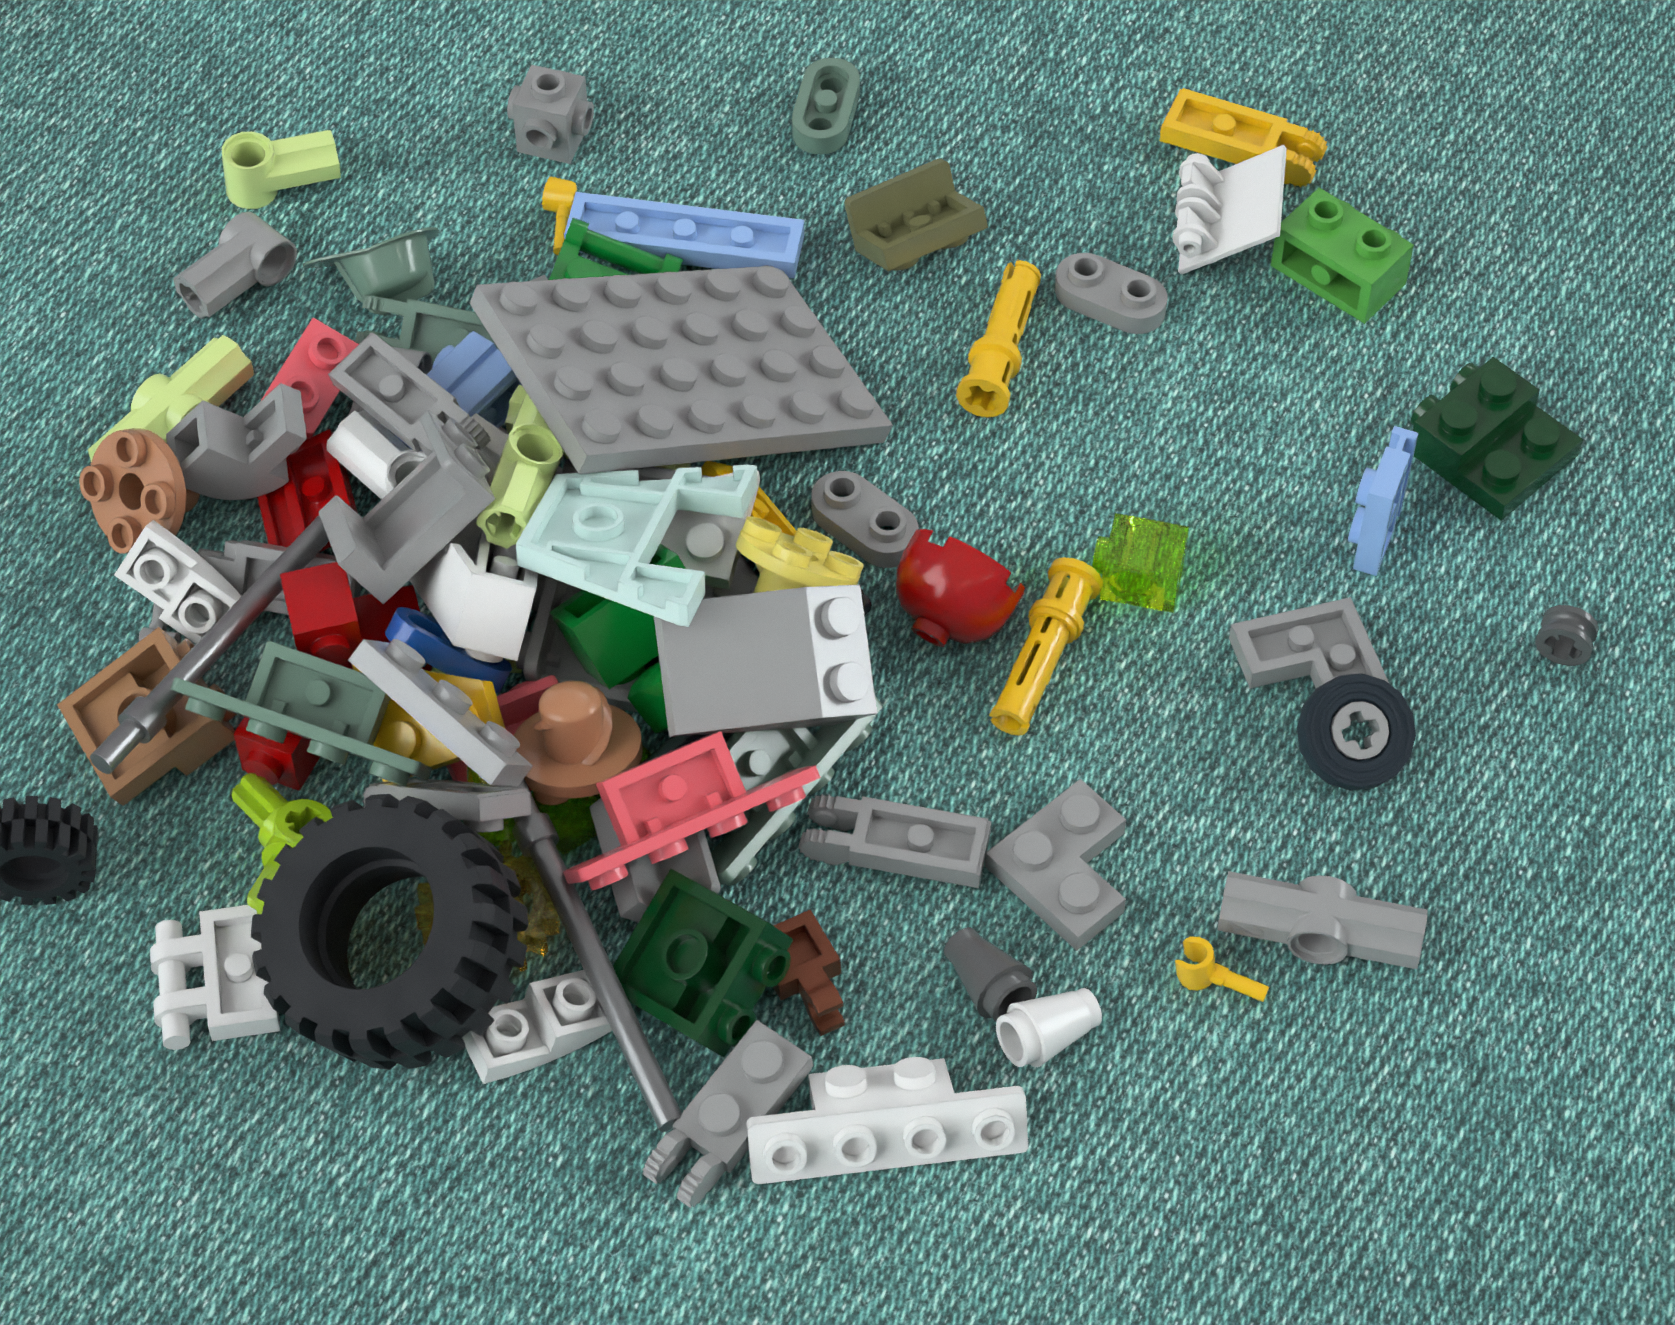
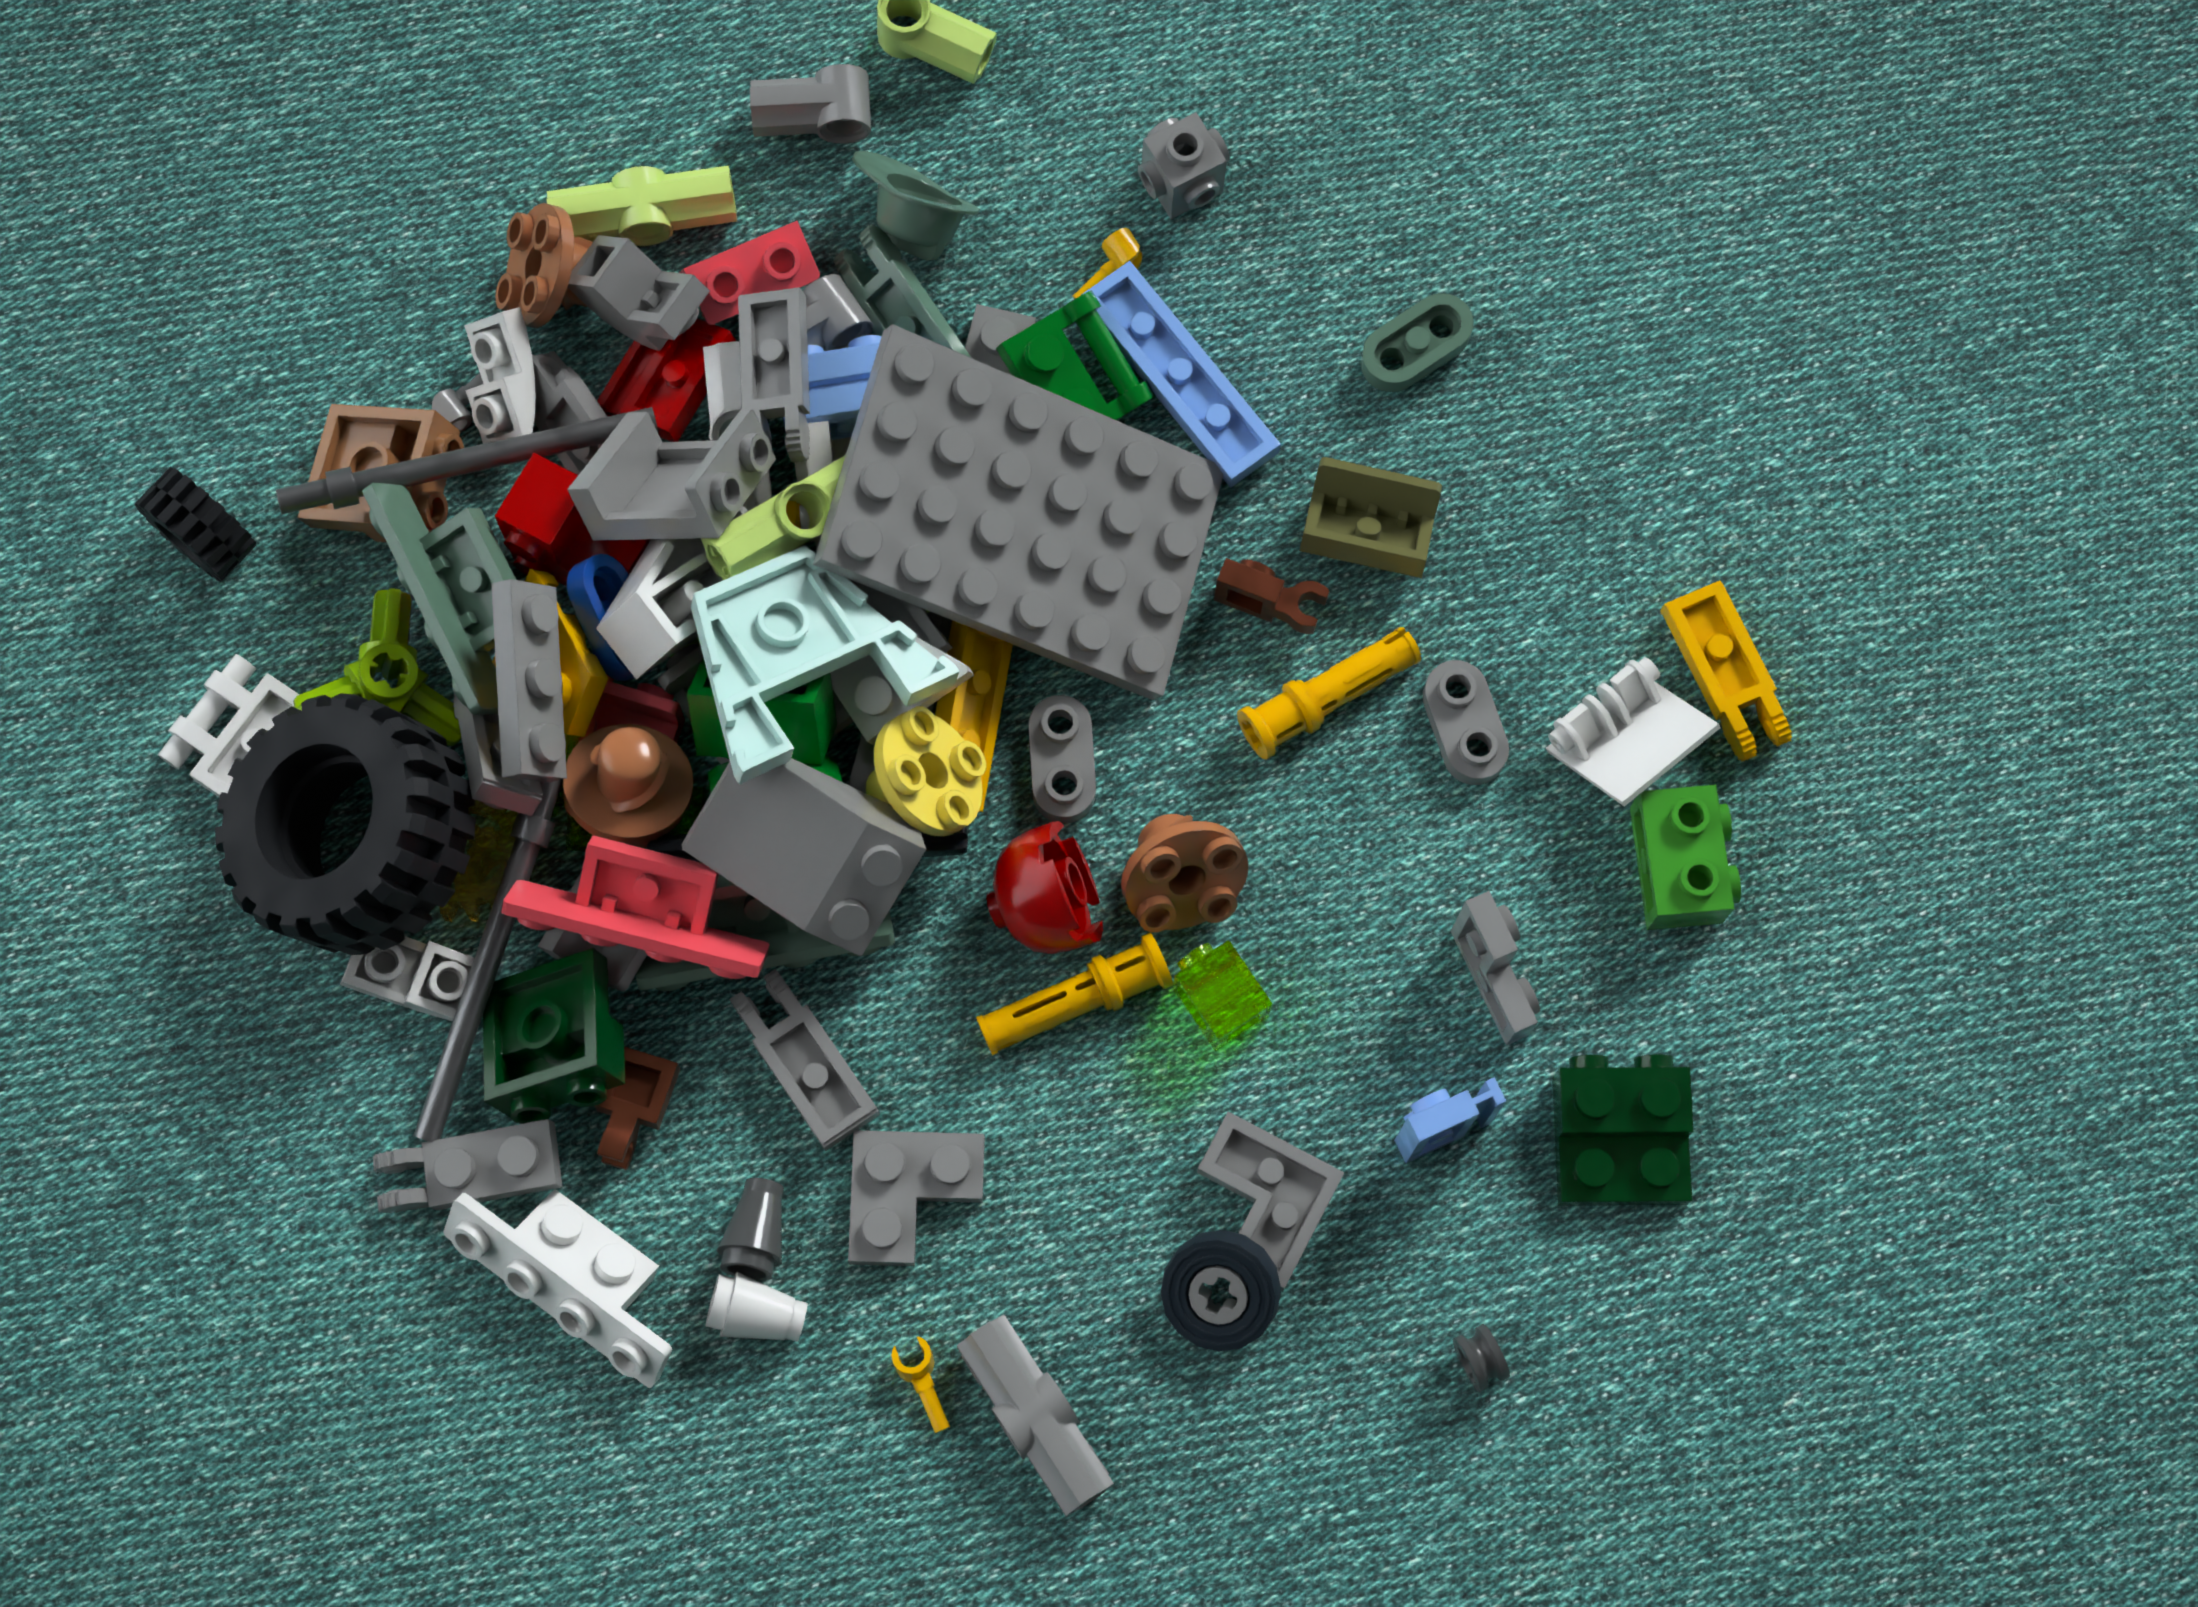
camera: 40 degrees right, 20 degrees up
(890, 313) = (1258, 592): none -> copper plate
(1034, 502) = (1183, 873): none -> nougat plate
(1288, 402) = (1488, 945): none -> light grey plate

